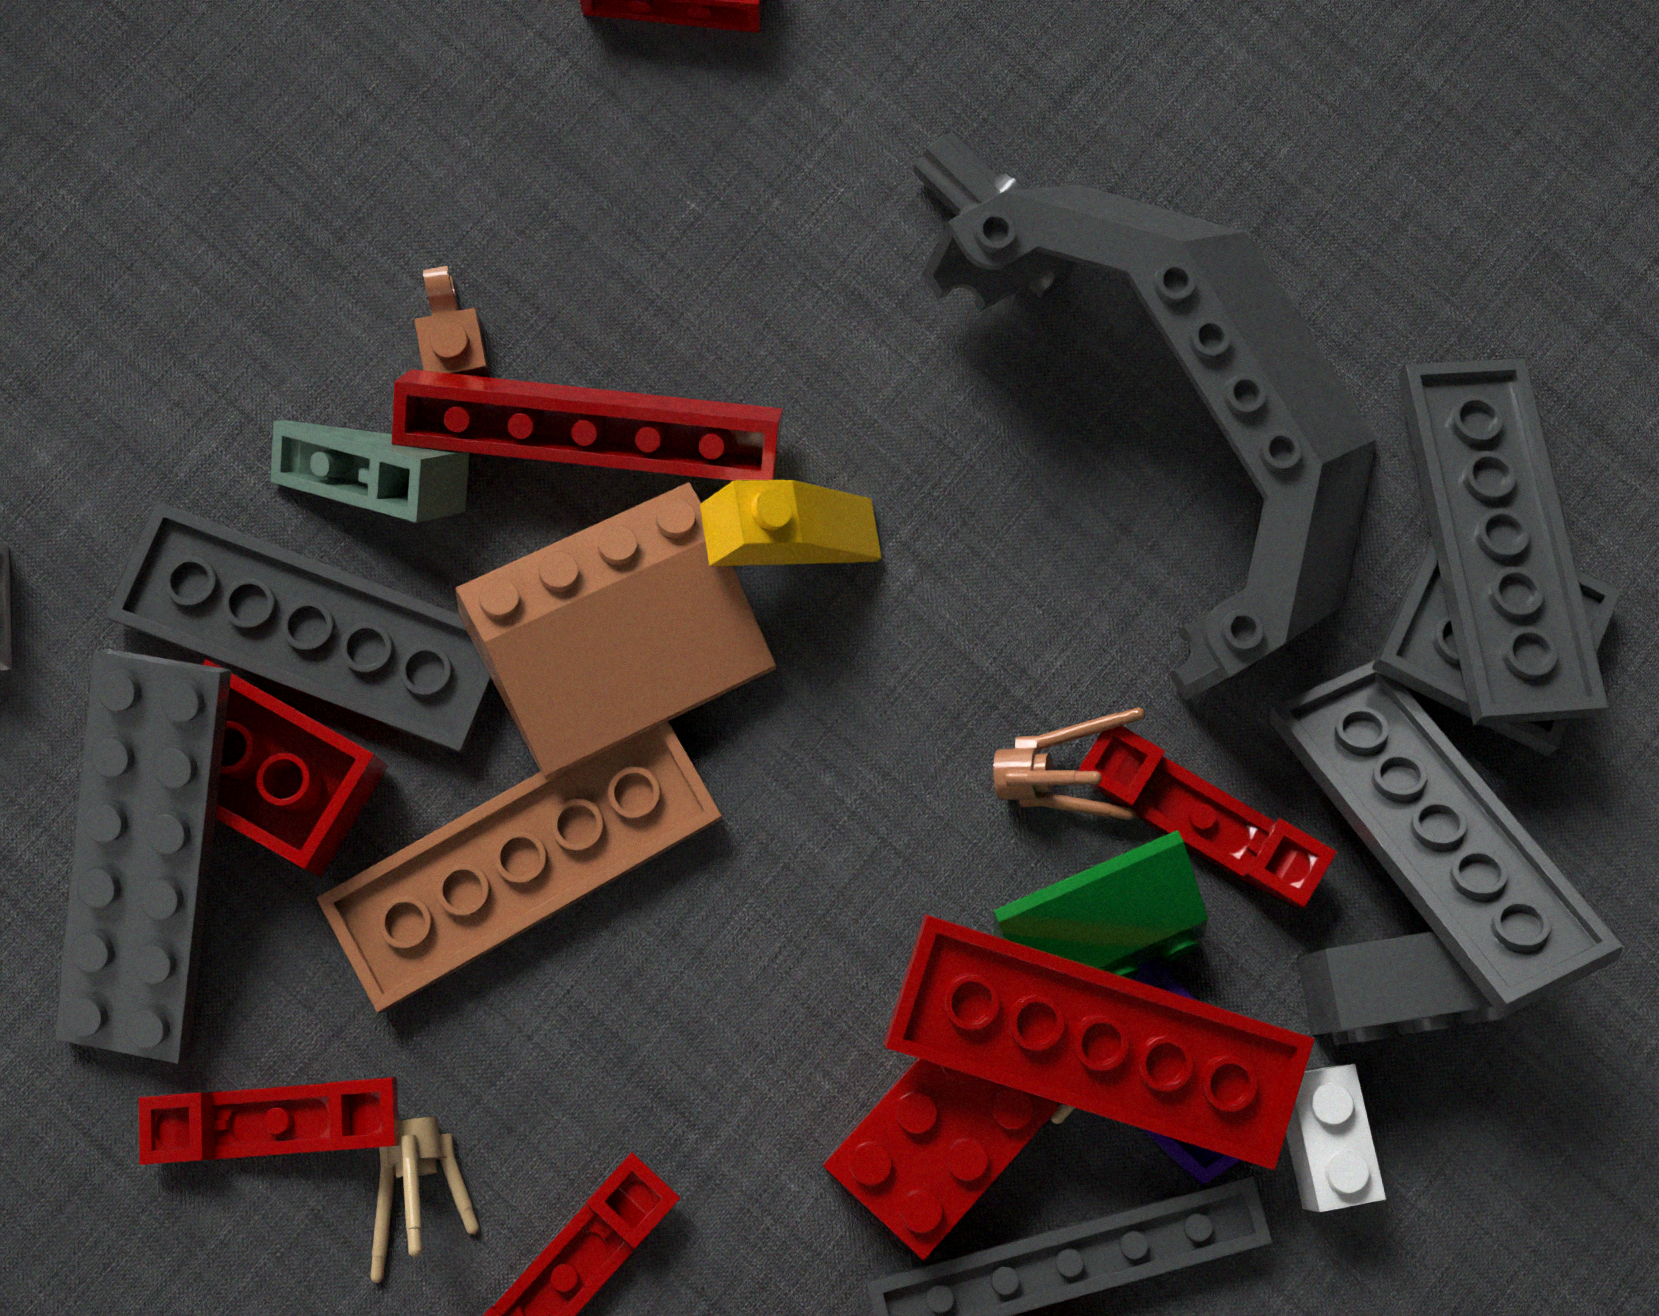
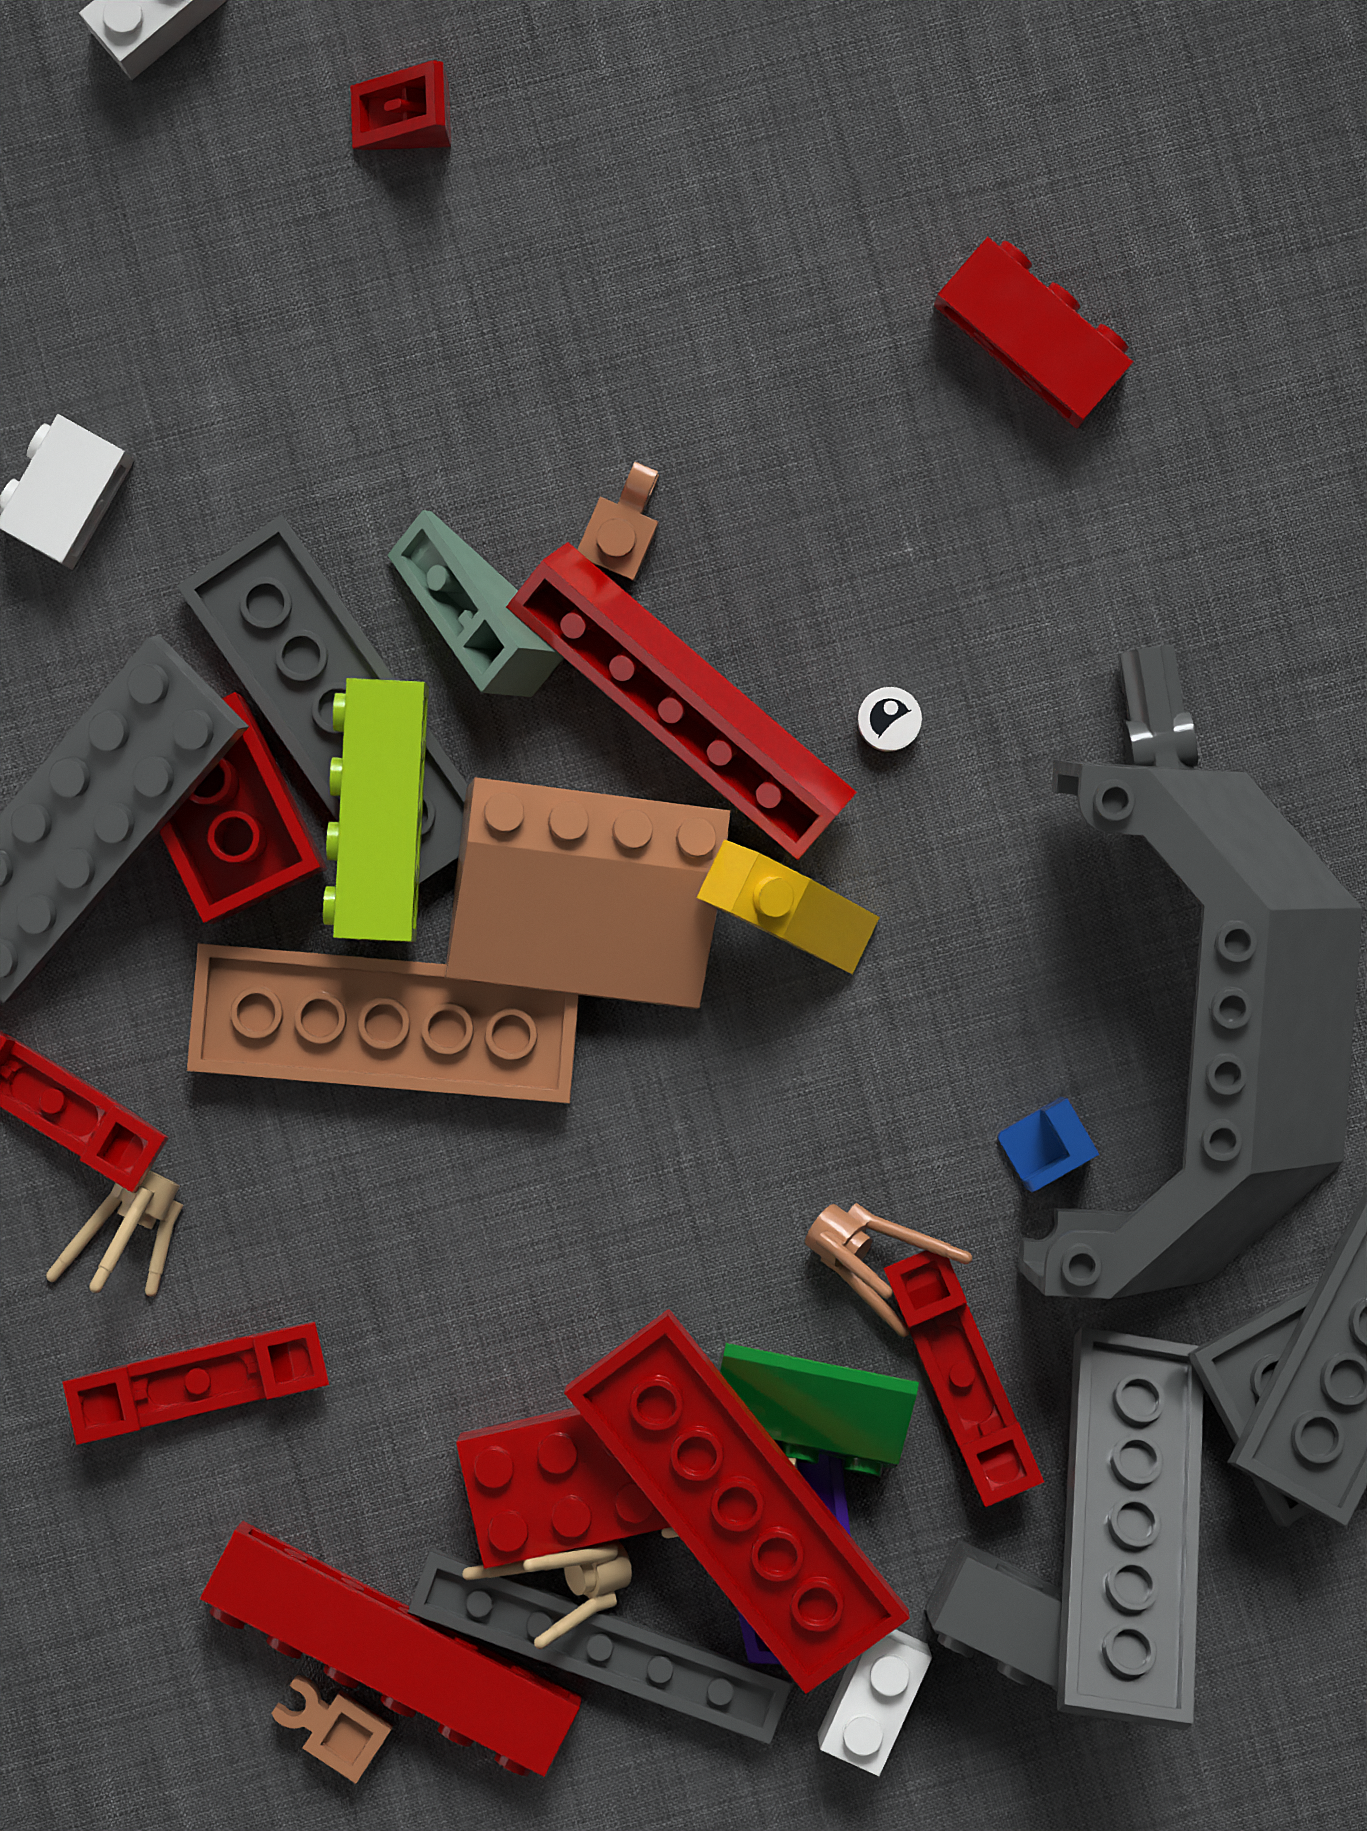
camera: 45 degrees right, 10 degrees up
(52, 128) = (402, 109): none -> red slope
(396, 678) = (379, 810): none -> lime brick
(769, 340) = (889, 719): none -> white tile
(1013, 1201) = (588, 1570): none -> tan plant
(1135, 581) = (1047, 1144): none -> blue panel

